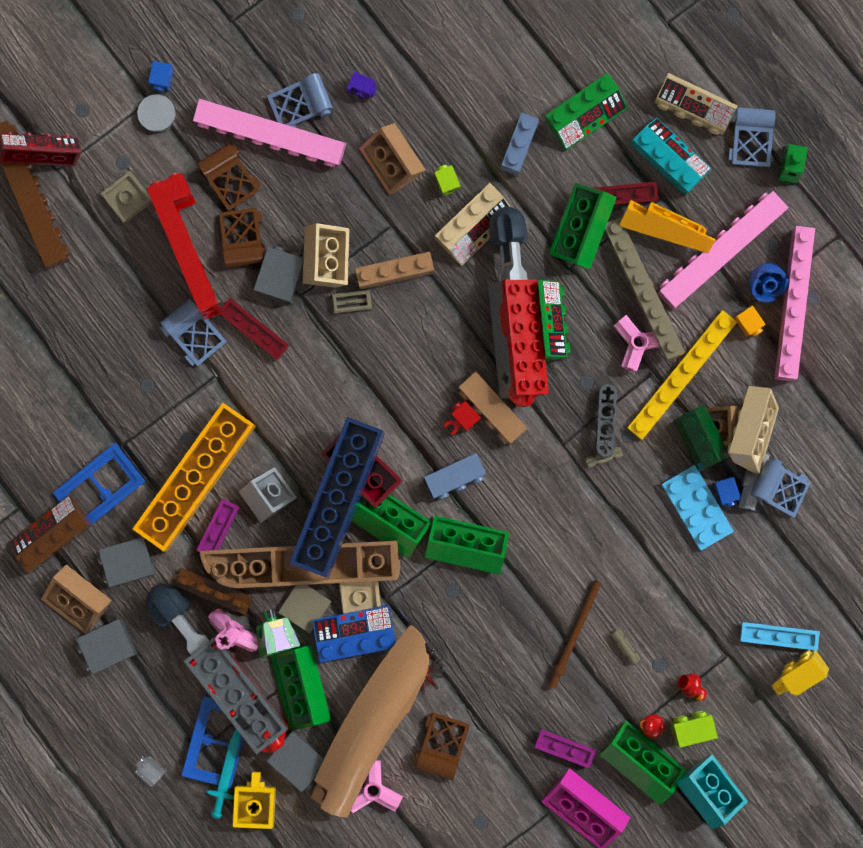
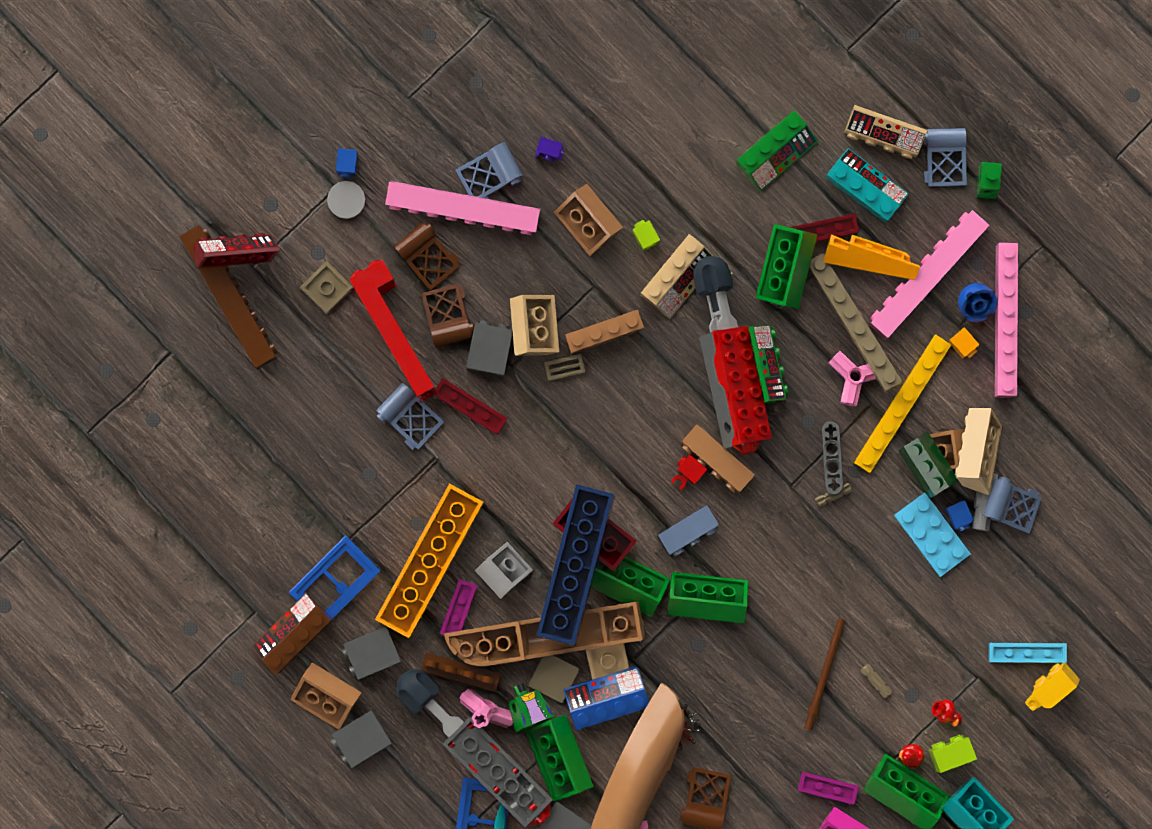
camera: 10 degrees left, 0 degrees up
(519, 144) = (714, 191): sand blue brick -> none

